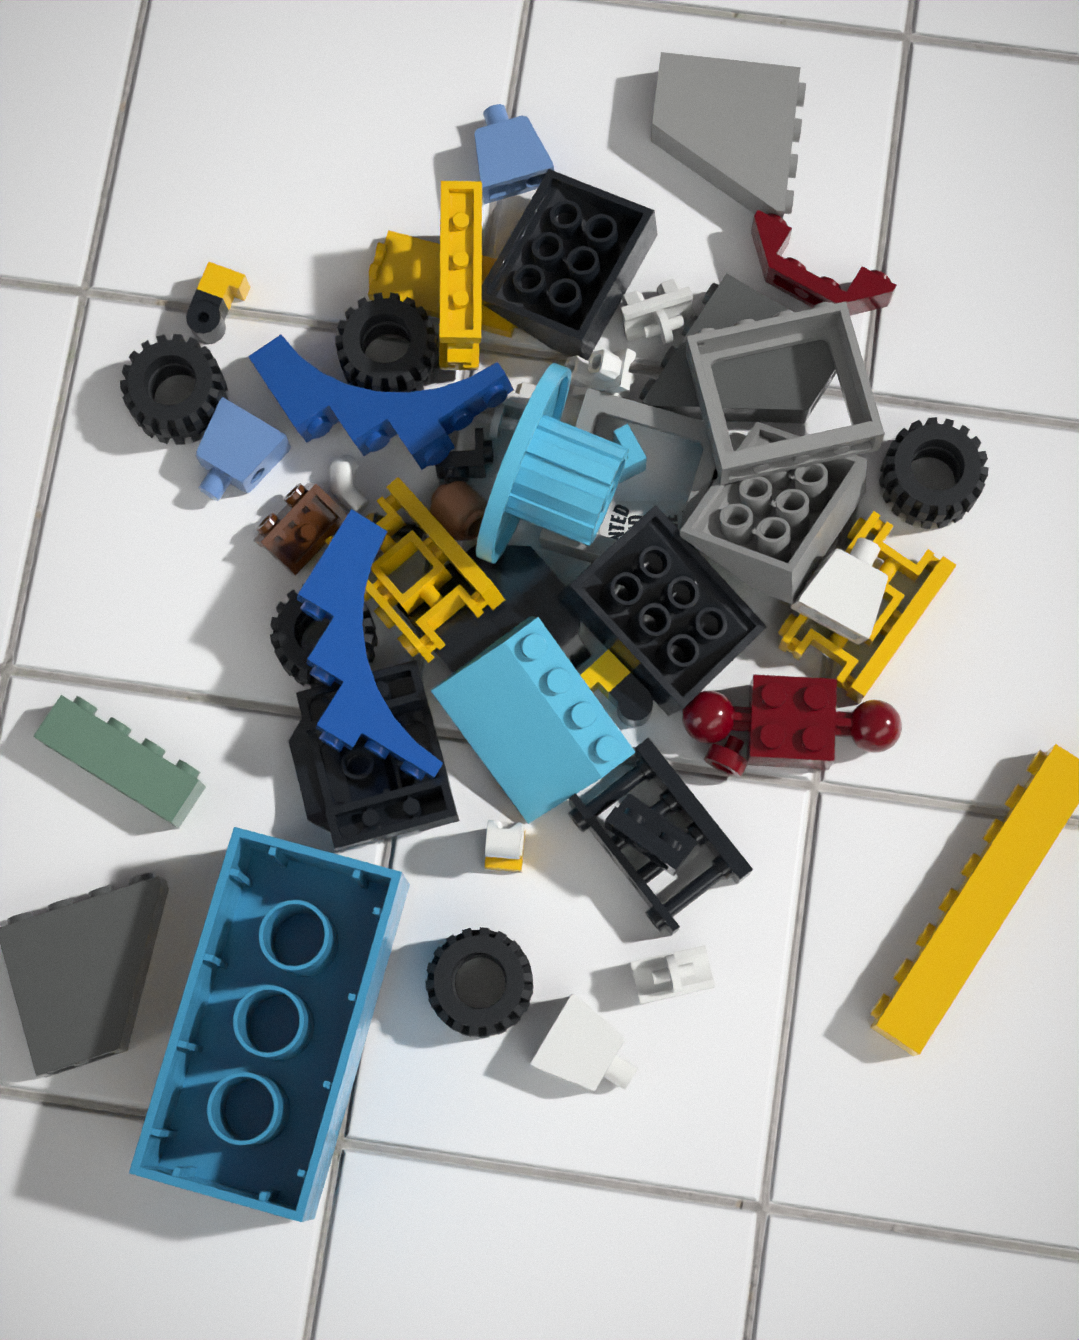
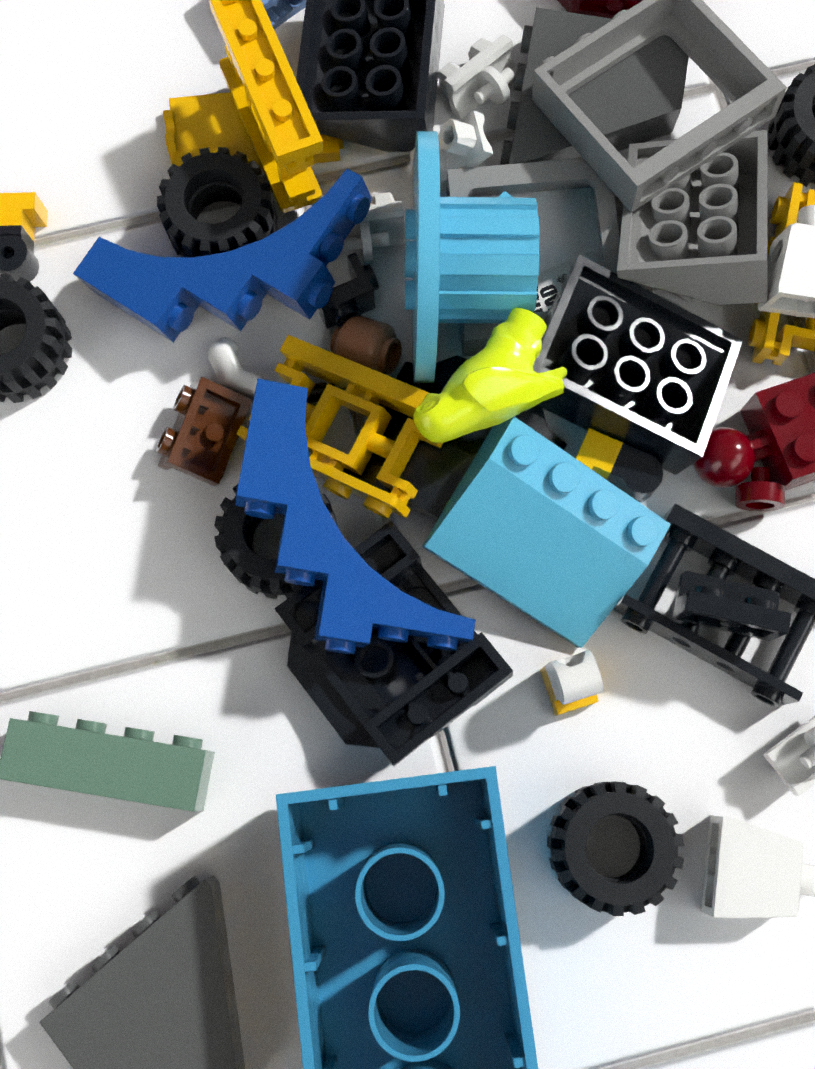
camera: 25 degrees left, 0 degrees up
(238, 450) = (102, 376): medium blue torso -> none
(530, 584) = (492, 383): none -> neon yellow animal

